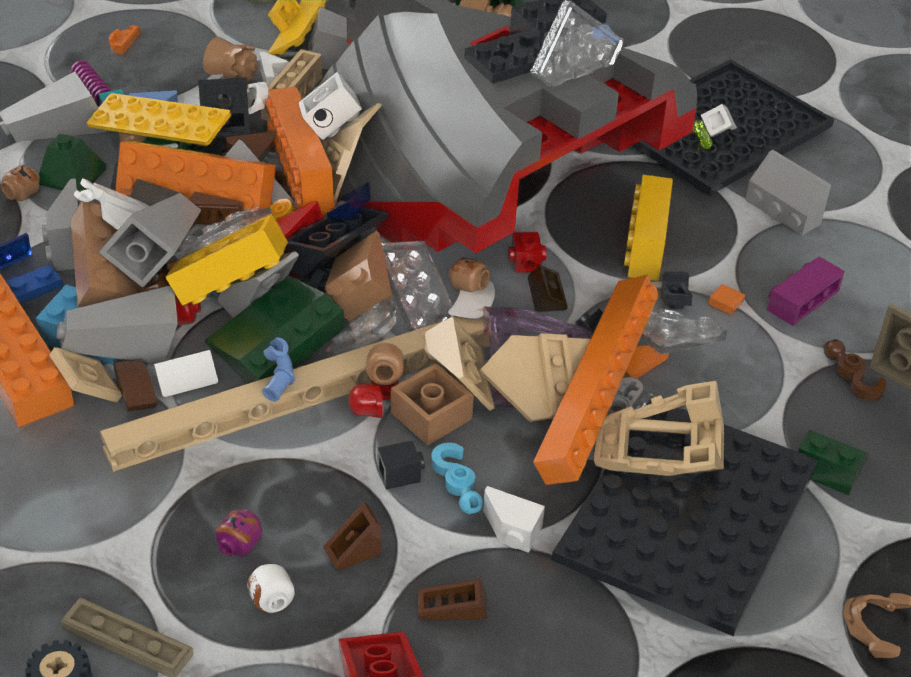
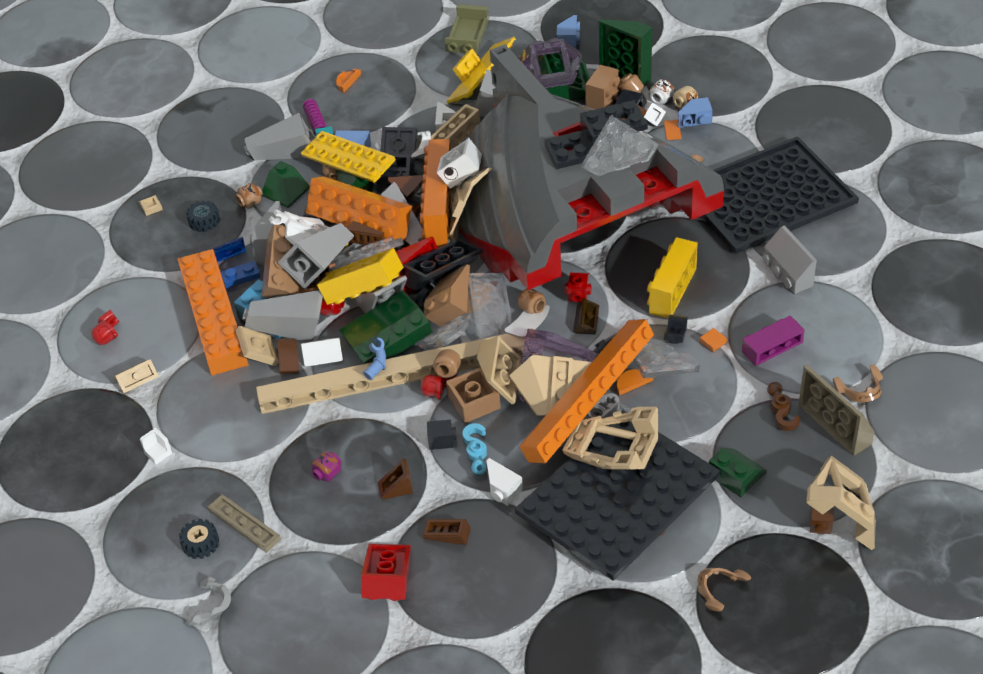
camera: 20 degrees right, 5 degrees up
(150, 193) = (327, 219): dark brown slope -> none
(230, 60) = (414, 108): medium nougat hat -> none
(270, 586) = (335, 505): white head -> none
(282, 208) = (412, 237): yellow tile -> none
(351, 203) = (459, 239): clear blue slope -> none
(701, 130) = (746, 197): clear neon green piece -> none
(718, 120) = (761, 192): white panel -> none

